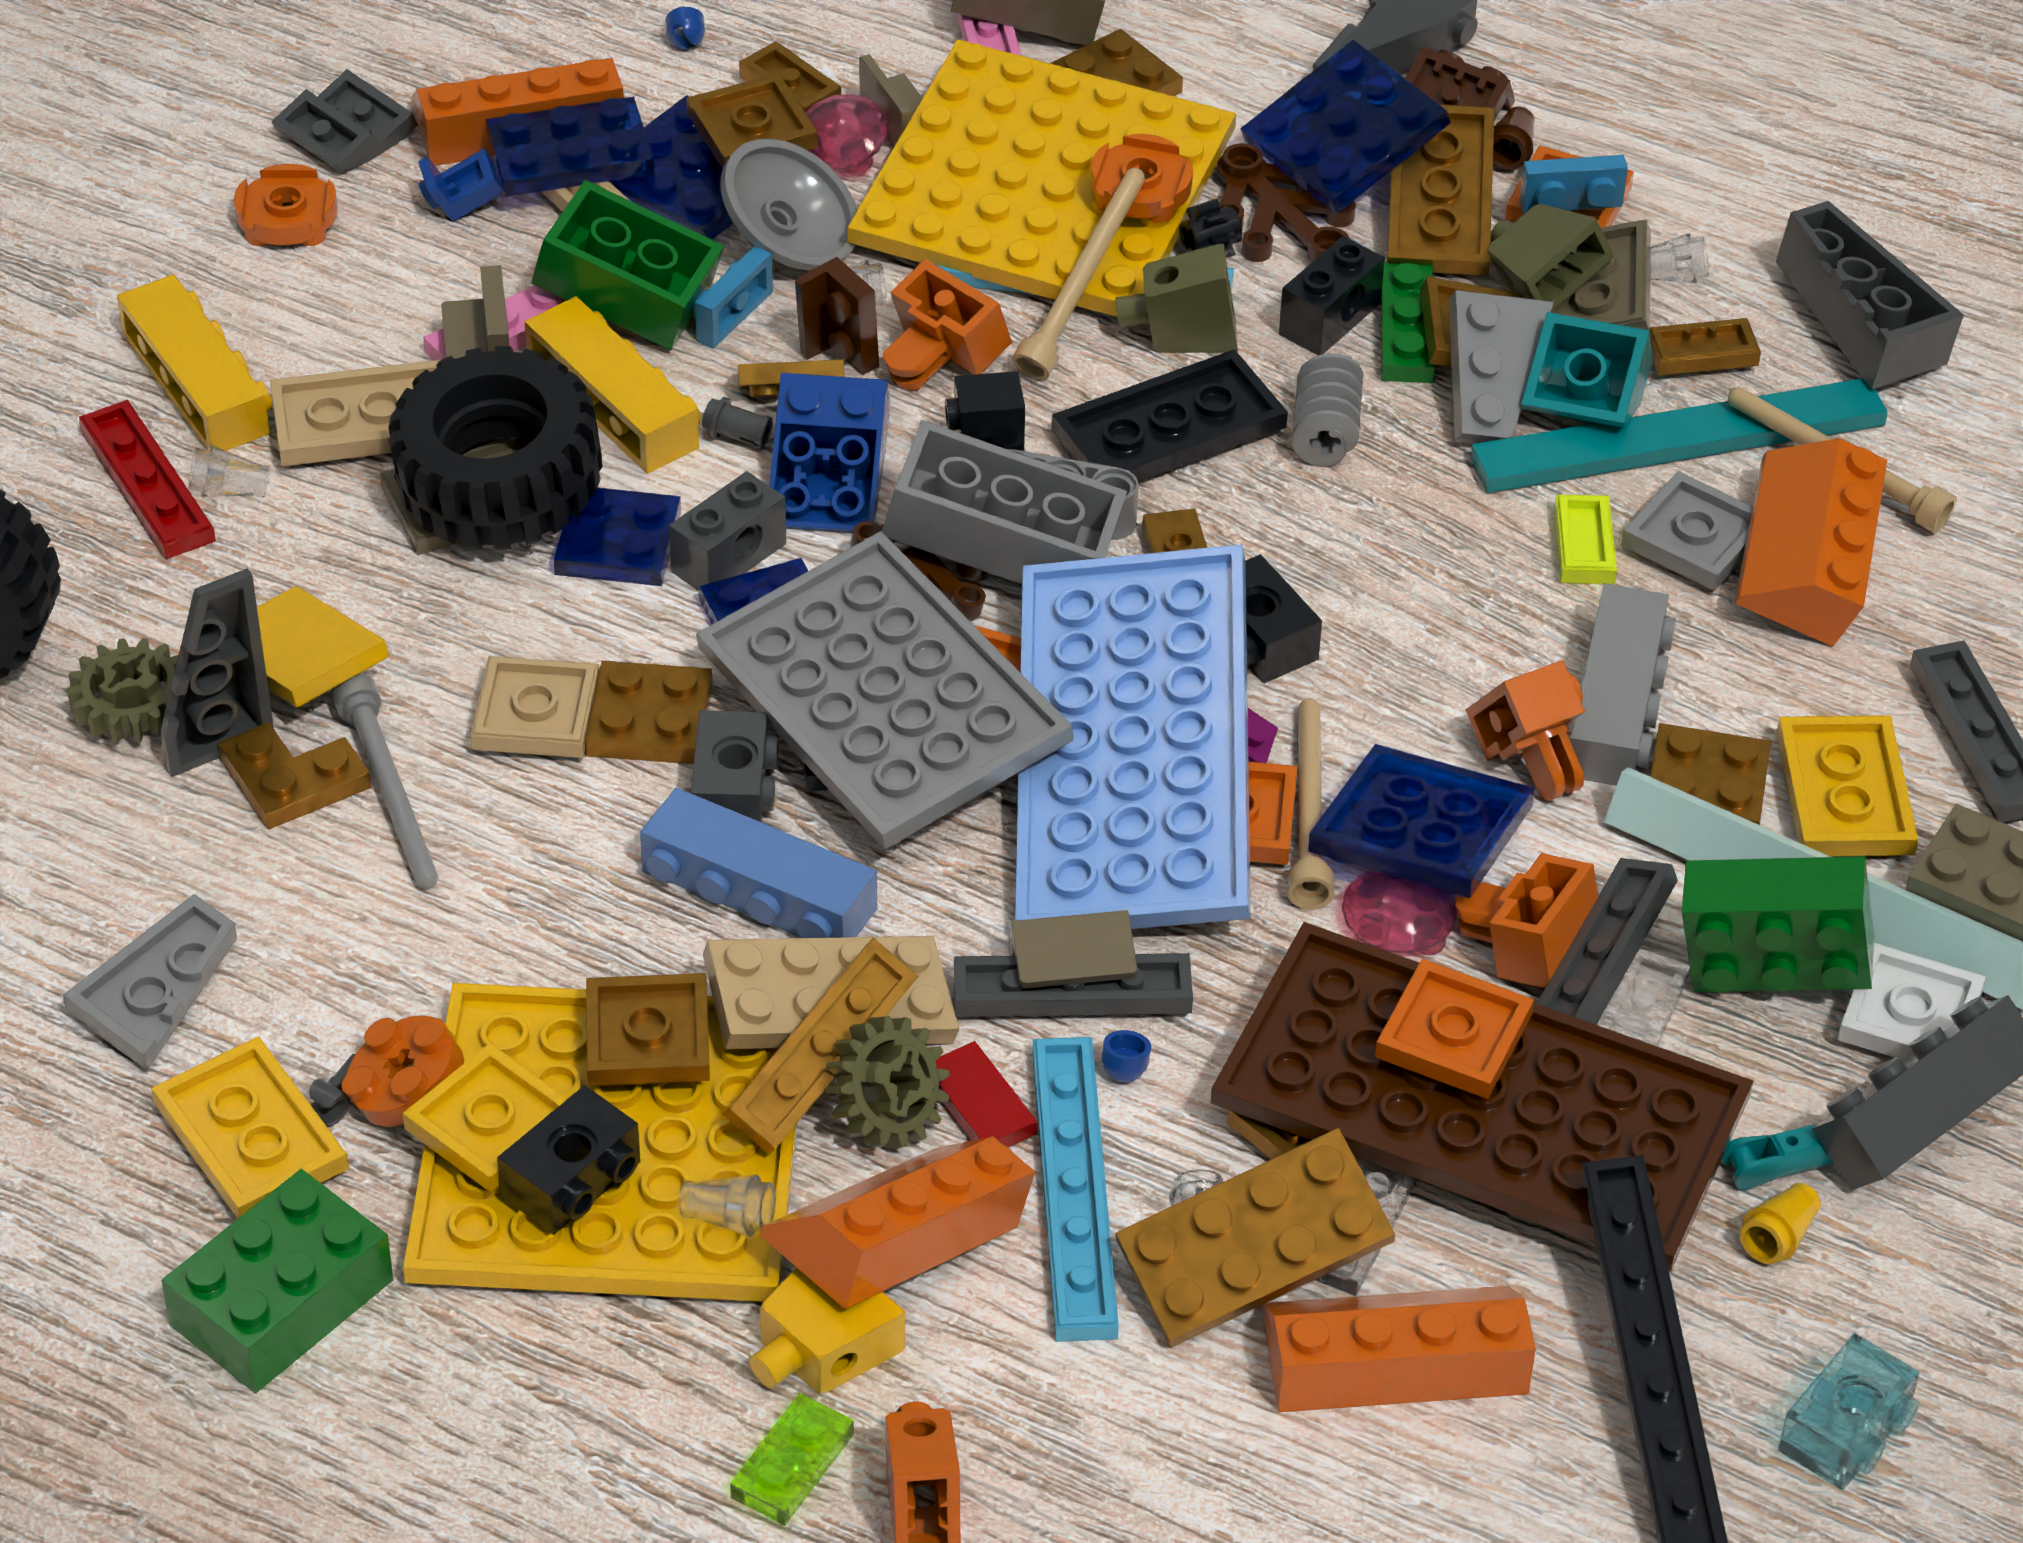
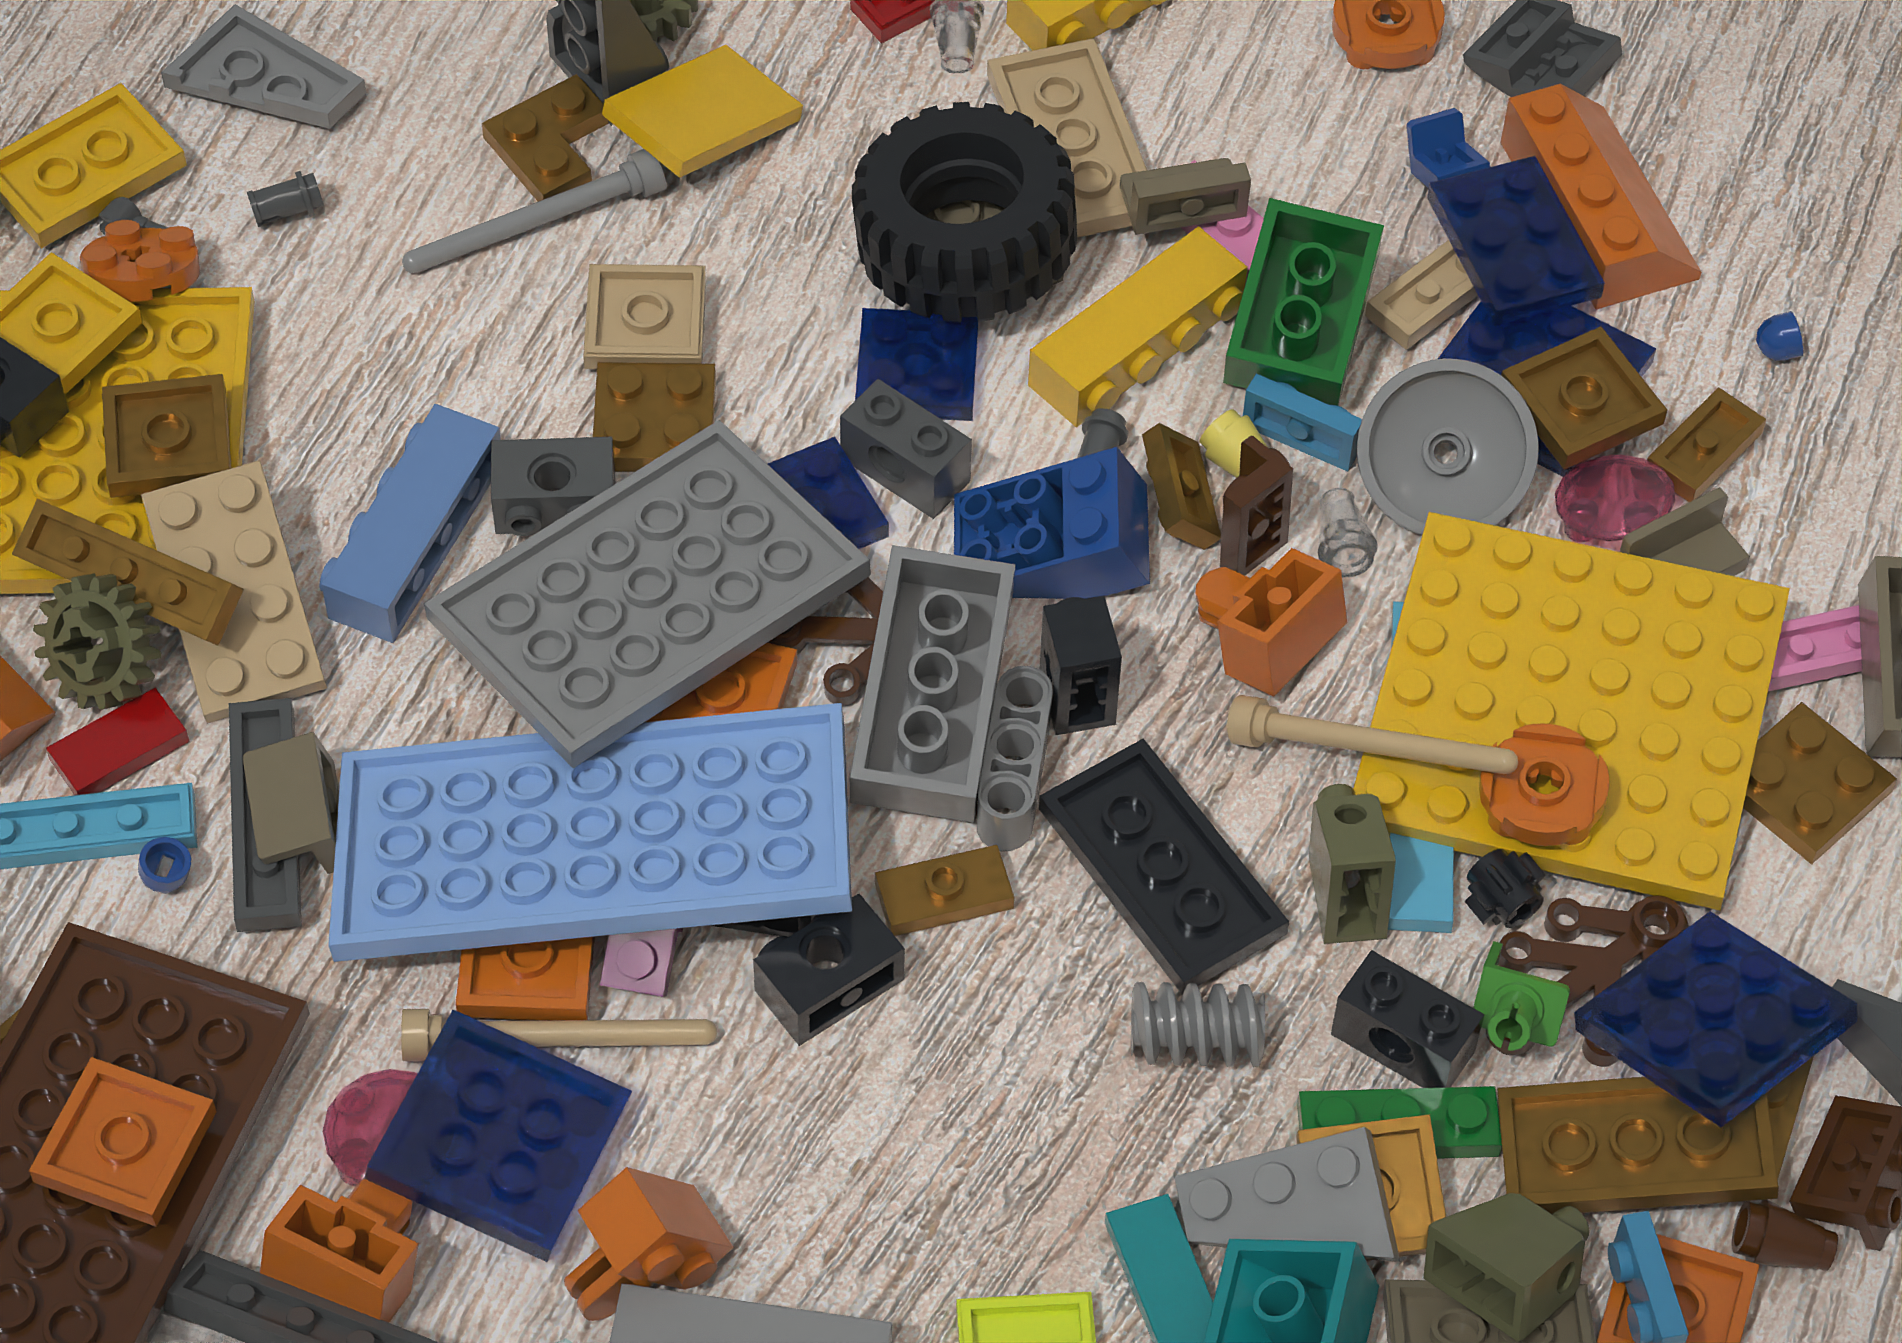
camera: 85 degrees right, 10 degrees up
(329, 955) = (285, 199): none -> dark grey pin
(756, 337) = (1224, 440): none -> light yellow cone
(1323, 226) = (1519, 1004): none -> bright green bracket

